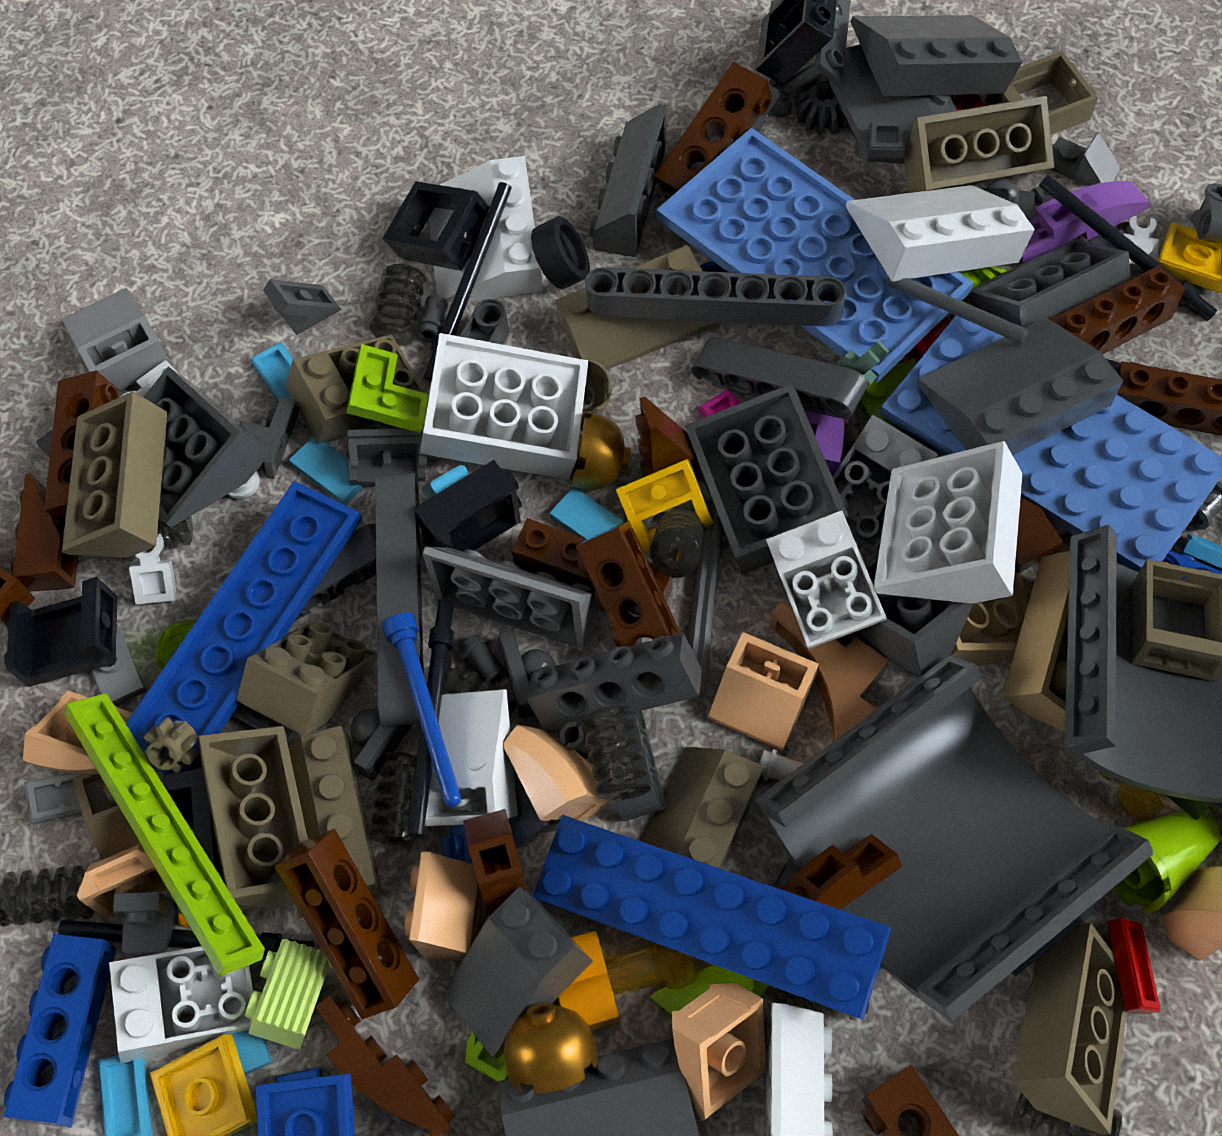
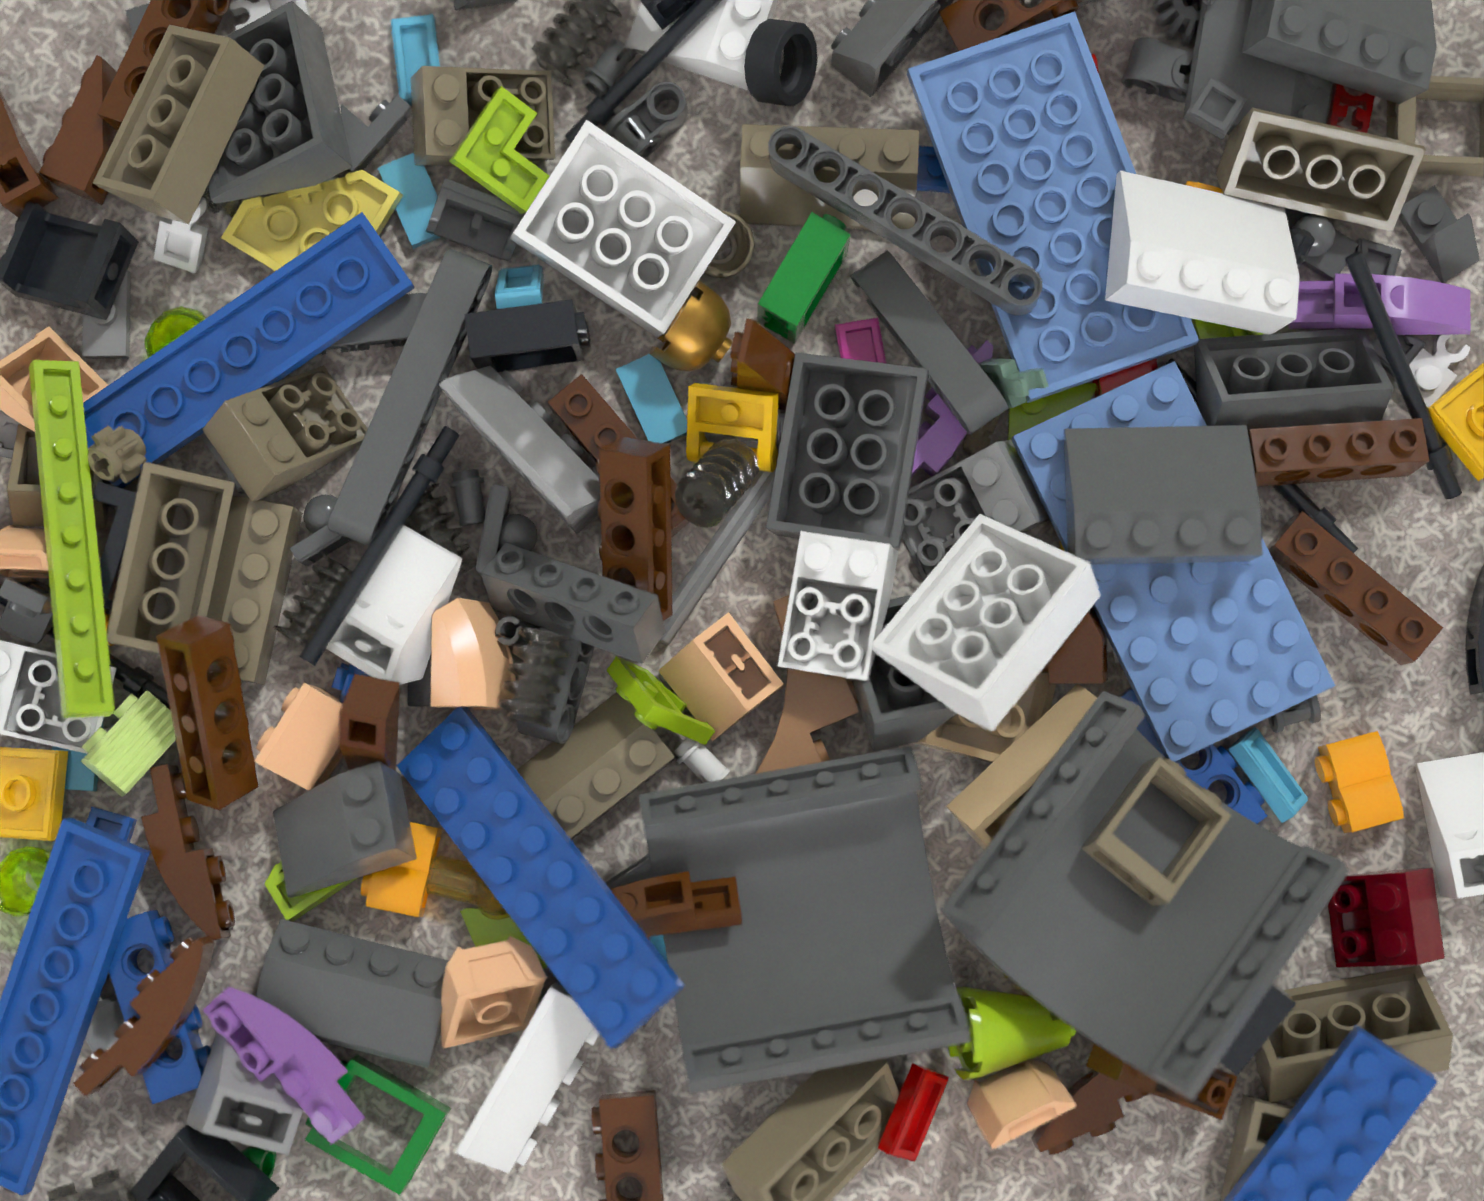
camera: 25 degrees right, 20 degrees up
(230, 530) = (291, 222): none -> light yellow plate
(402, 632) = (385, 453): blue piece -> none
(549, 1048) = (335, 921): pearl gold cylinder -> none
(660, 365) = (804, 276): none -> green window
(722, 734) = (654, 702): none -> lime wing
(831, 148) = (1158, 69): none -> dark grey piece
(960, 309) = (1158, 372): dark grey bar -> none

